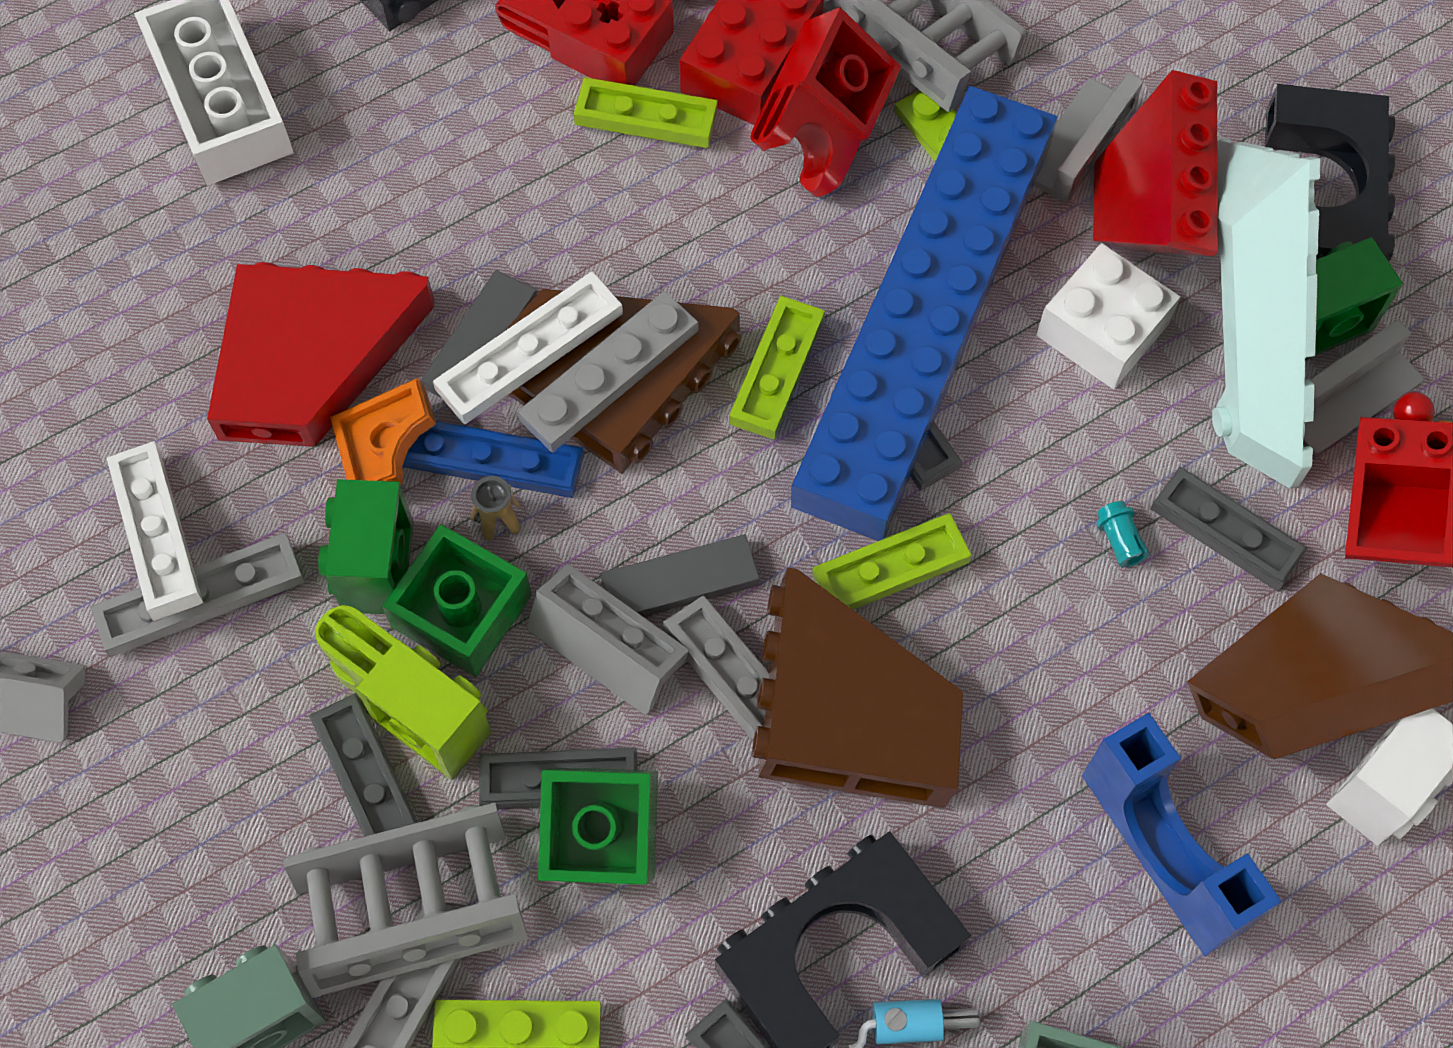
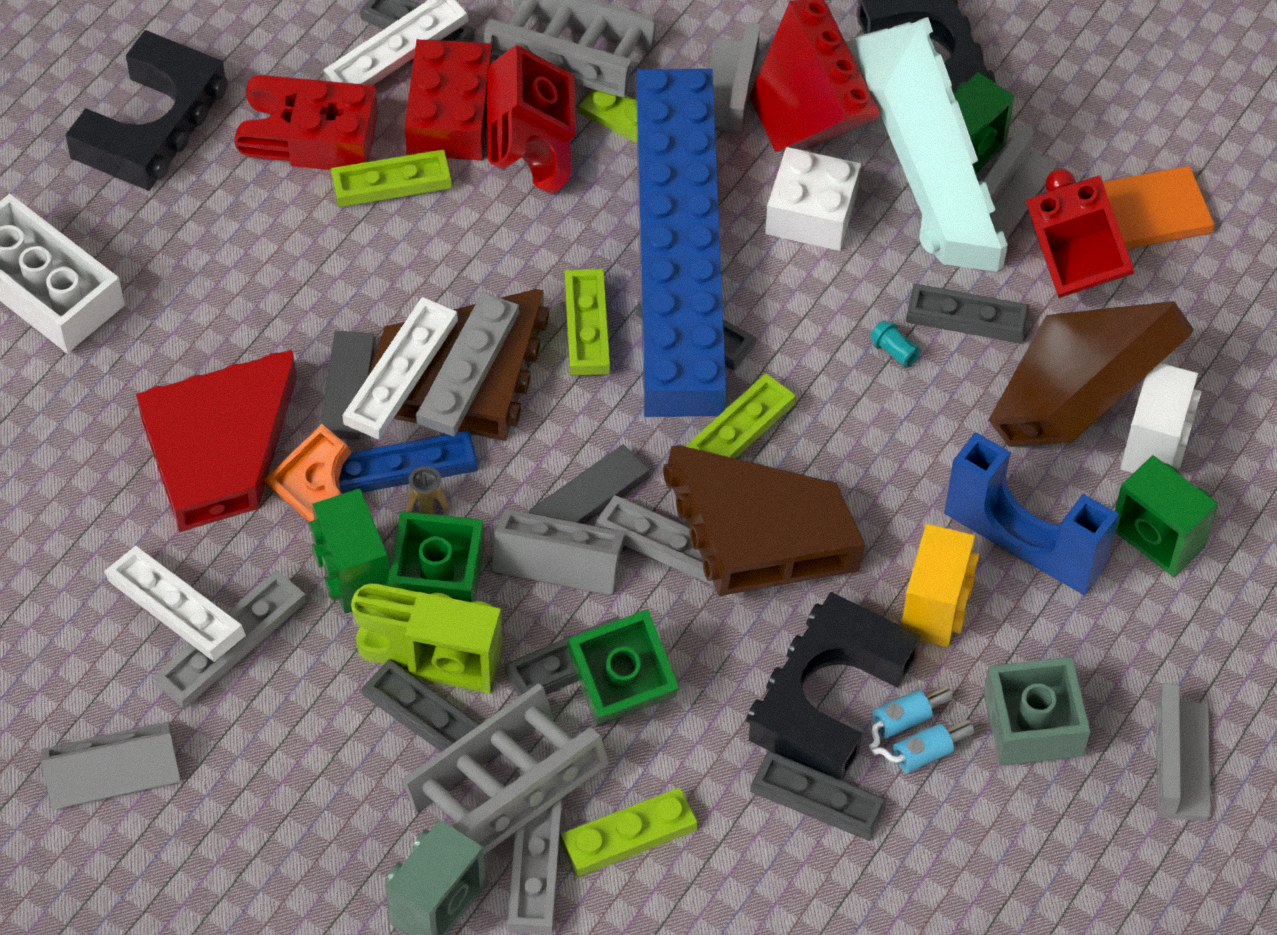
camera: 25 degrees left, 10 degrees down
(1028, 869) = (940, 584): none -> yellow brick
(1349, 902) = (1164, 515): none -> green brick

